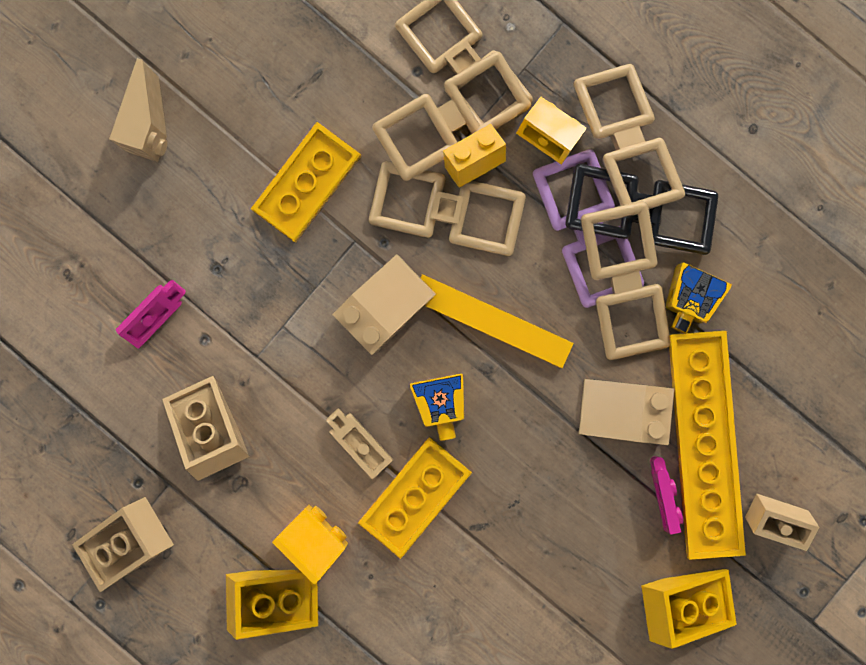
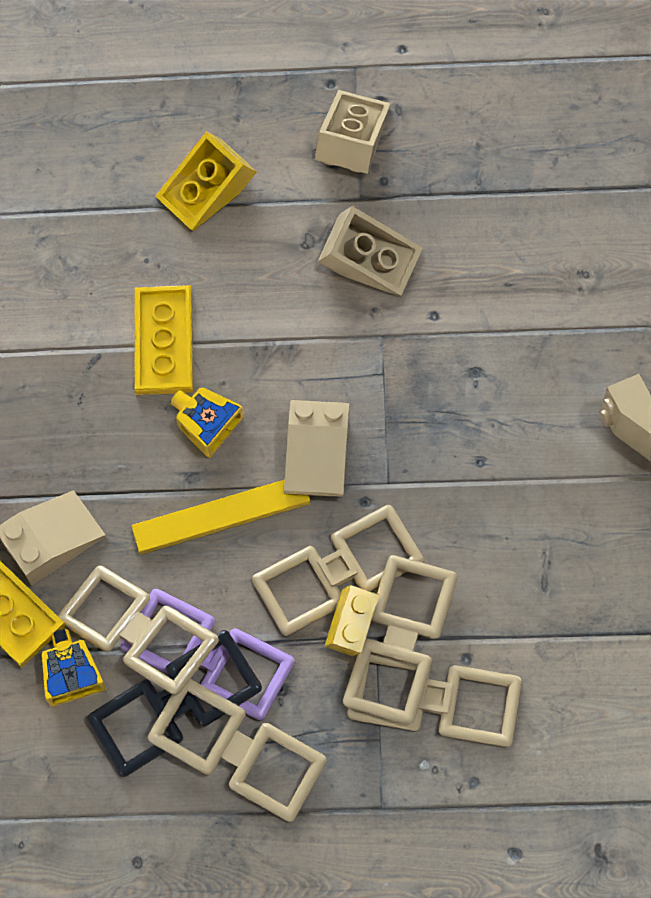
camera: 135 degrees right, 20 degrees down
(151, 313) = (490, 295): dark pink hinge -> none
(306, 182) = (470, 493): yellow tile -> none
(311, 543) = (211, 234): yellow slope -> none
(358, 443) = (243, 339): tan hinge -> none
(551, 130) = (307, 699): yellow brick -> none

